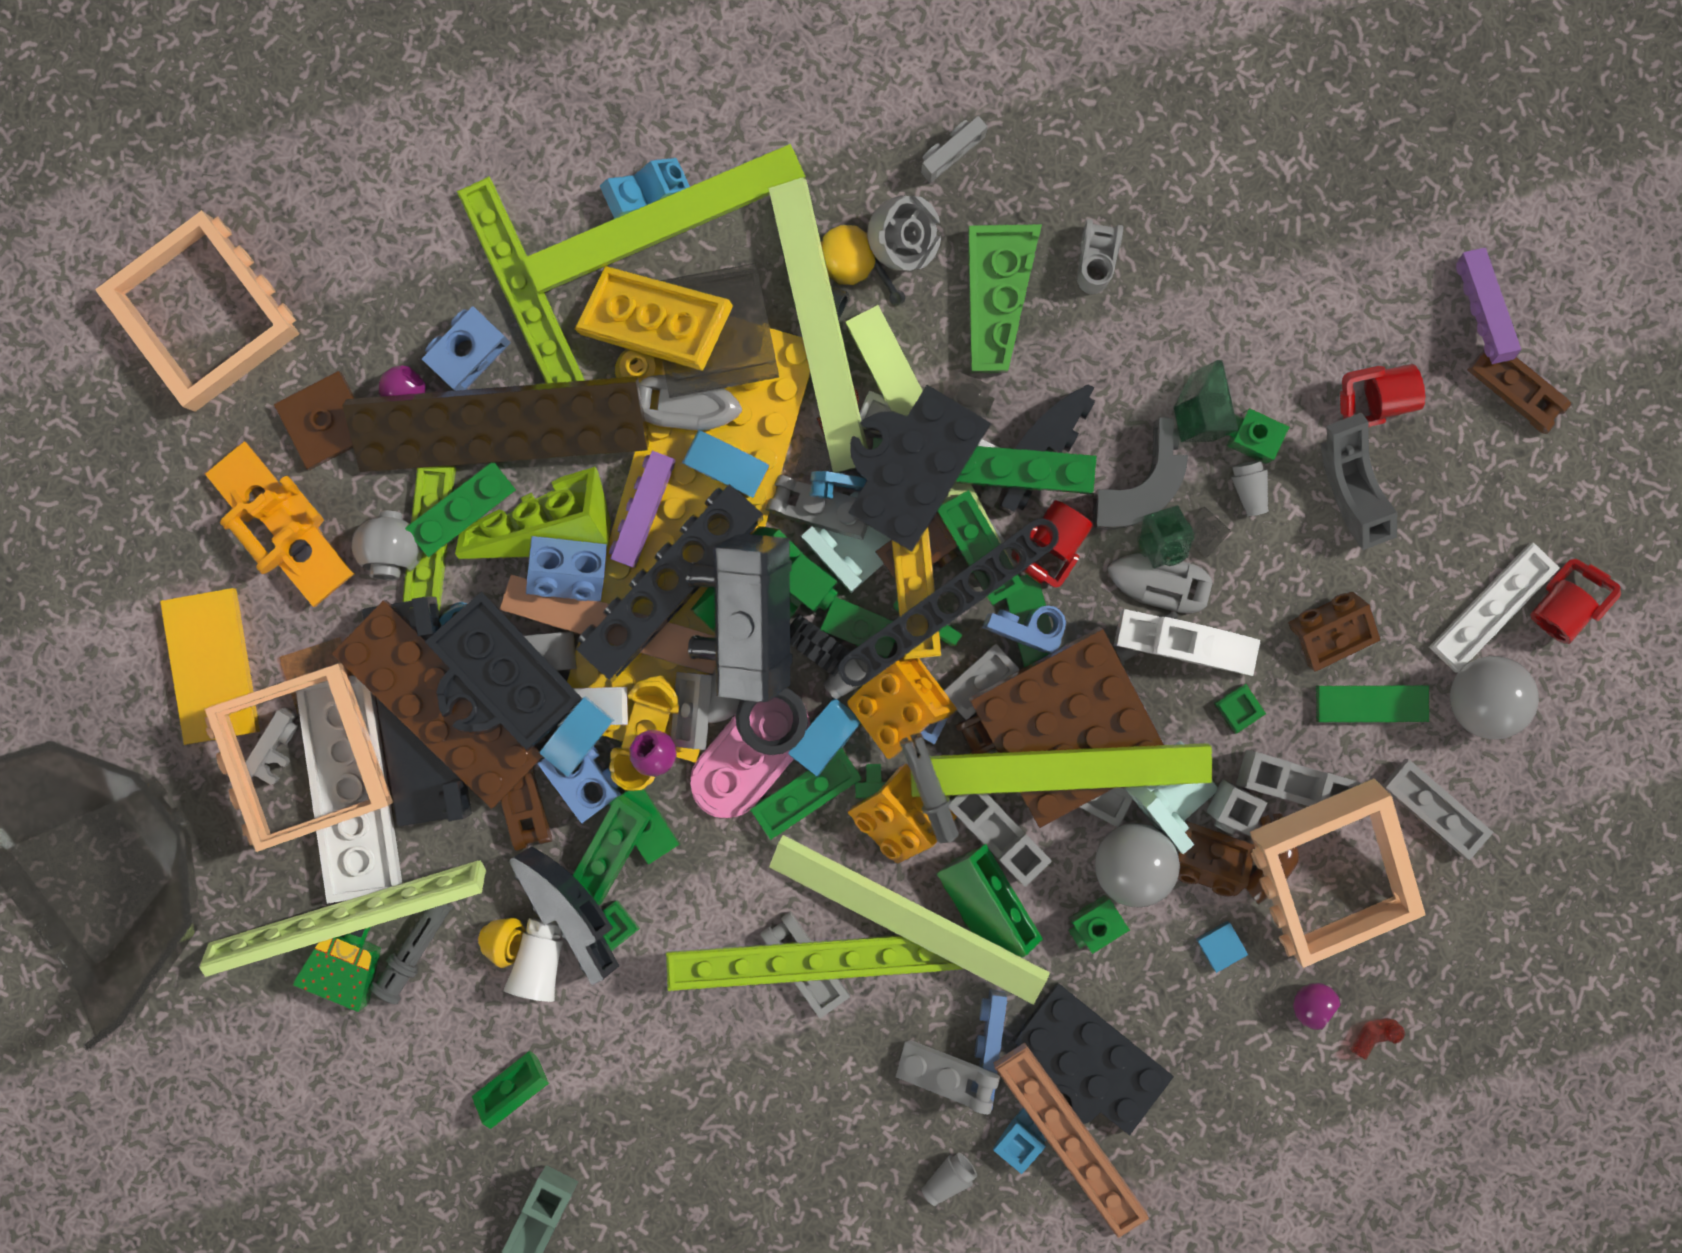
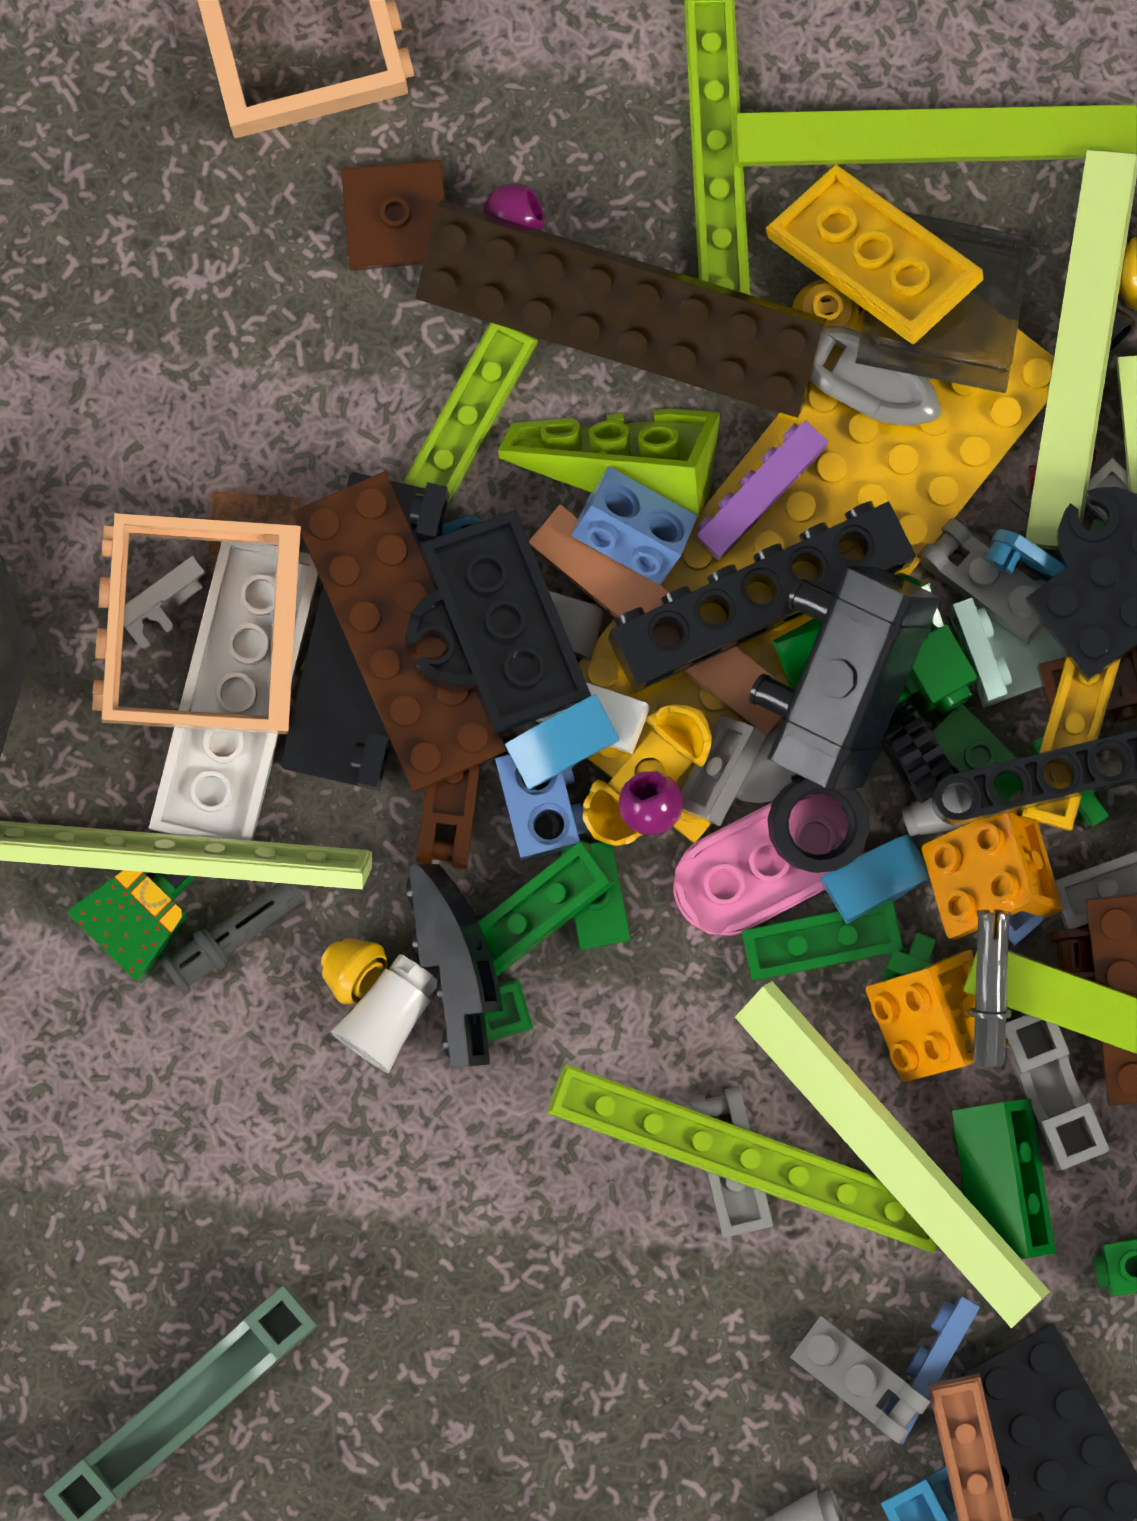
camera: 25 degrees right, 5 degrees down
(208, 660) = (120, 460): yellow tile -> none
(288, 515) = (302, 316): light orange piece -> none
(386, 546) = (413, 406): light grey plant -> none
(460, 509) = (525, 397): green plate -> none
(464, 370) = (598, 222): medium blue brick -> none
(510, 1090) = (283, 1165): green plate -> none
(648, 185) = (931, 85): dark azure slope -> none
(725, 463) = (891, 474): dark azure slope -> none

